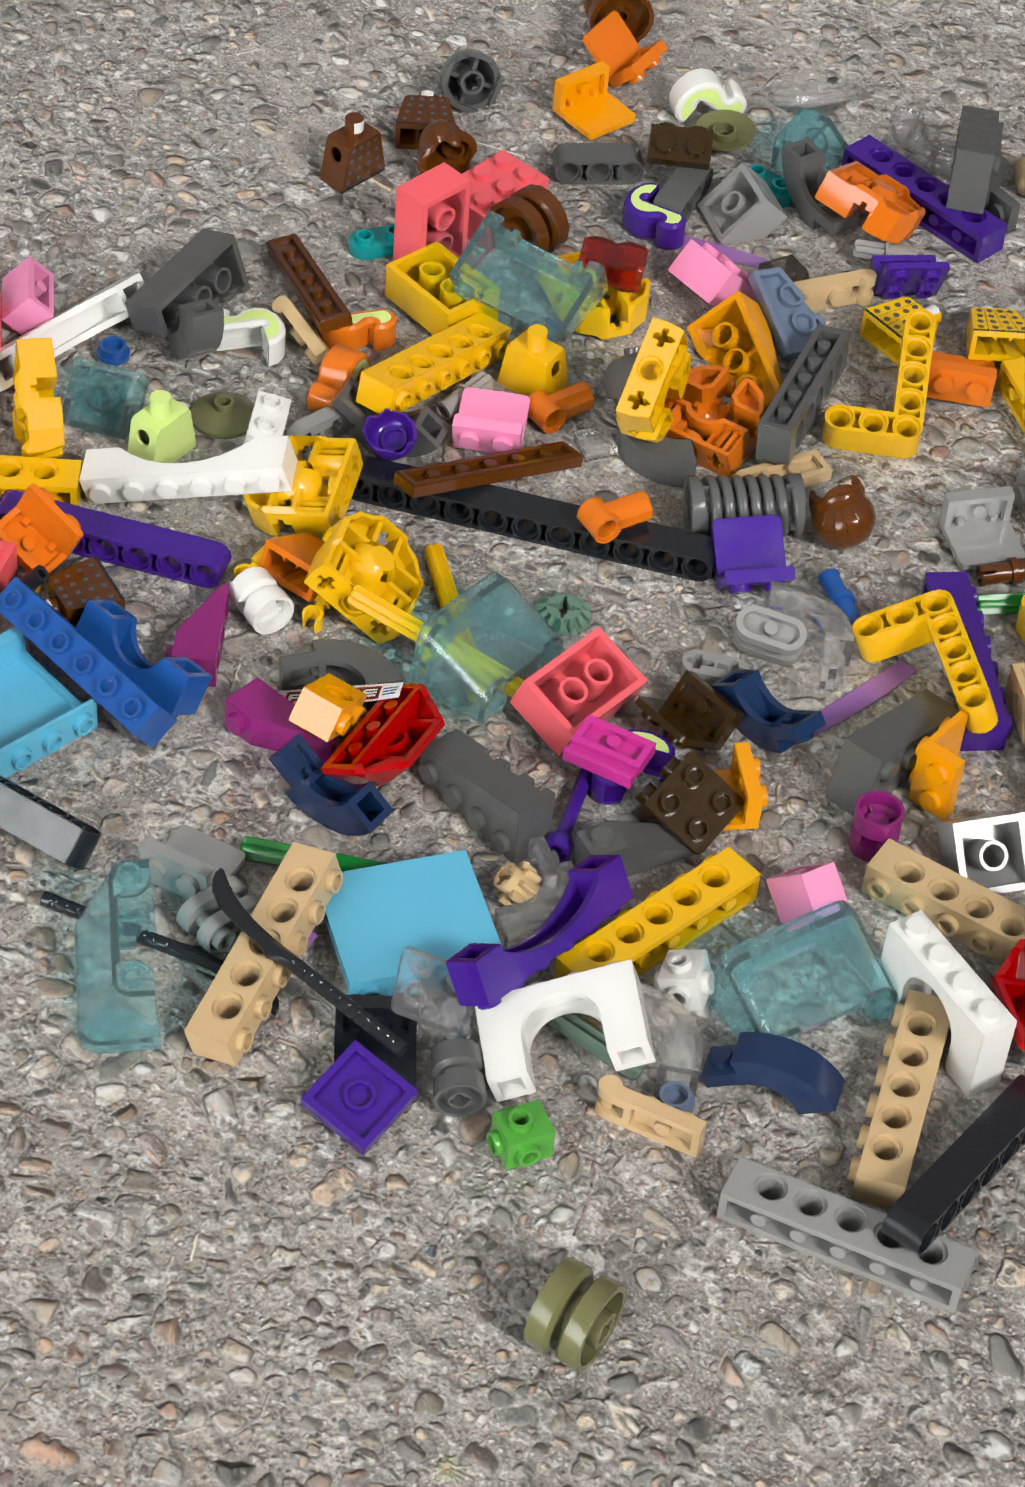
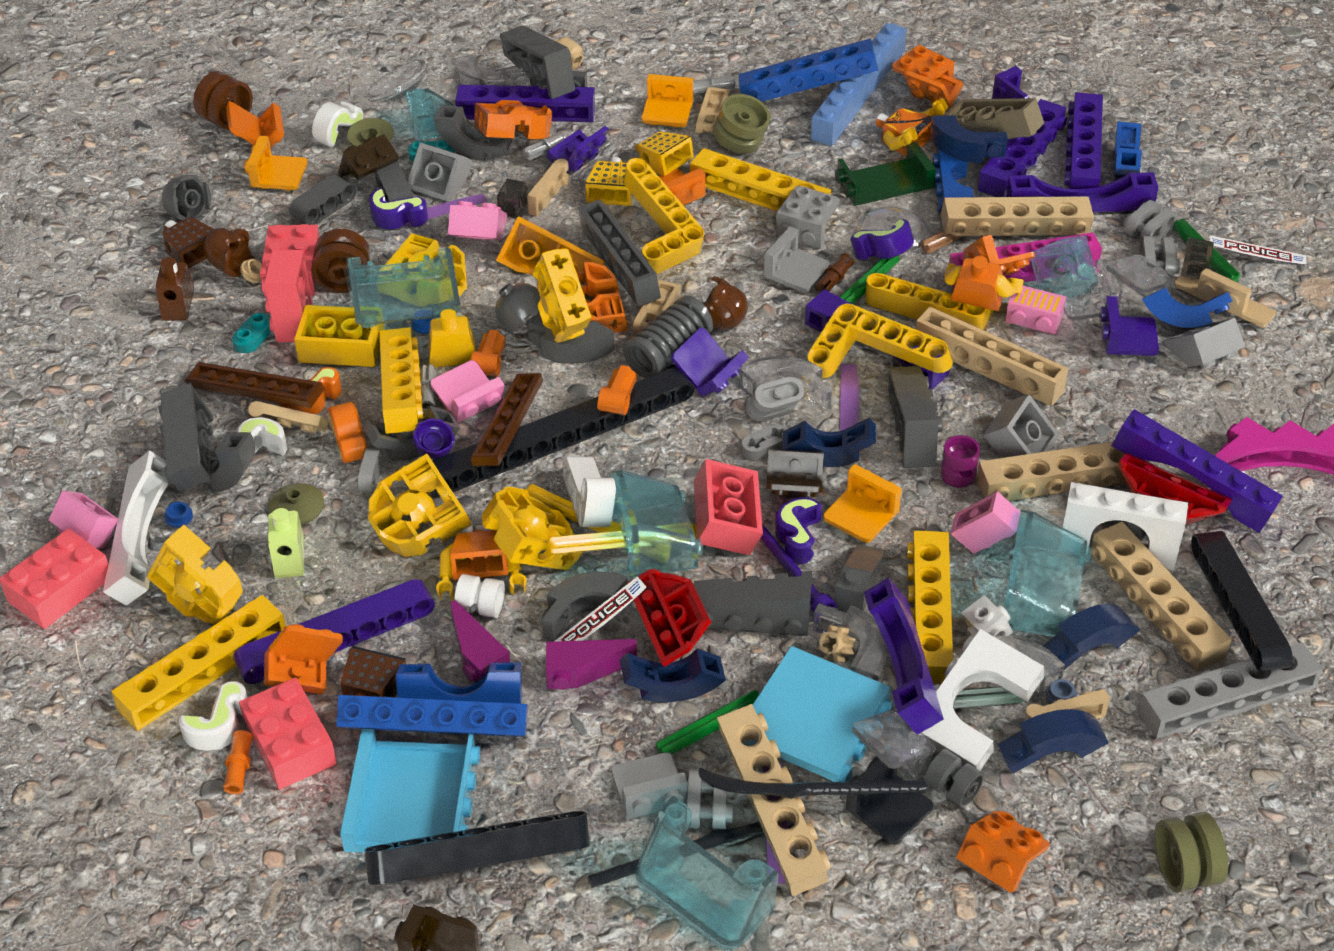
camera: 40 degrees left, 0 degrees up
(35, 577) = (324, 697): black arm -> none
(103, 397) = (226, 542): clear light blue slope -> none
(254, 467) = (298, 585): white arch -> none
(268, 416) = (345, 493): white brick -> none
(328, 707) = (619, 625): light orange brick -> none
(359, 1097) = (922, 836): dark purple plate -> none
(423, 1163) = (1001, 848): none -> orange bracket
(457, 576) = (589, 493): none -> white beam
(521, 1135) = (1027, 780): bright green brick -> none
(574, 621) = (658, 468): sand green gear -> none
(595, 443) = (532, 362): clear tile -> none
(609, 751) = (794, 526): dark pink plate -> none
(611, 1122) = (1052, 733): none -> dark blue arch
(622, 261) = (416, 246): clear red brick -> none
(689, 802) = (856, 521): dark brown bracket -> none
(784, 311) = (550, 216): sand blue wing -> none
(838, 593) = (766, 349): blue pin -> none
(938, 768) = (954, 405): light orange bracket -> none

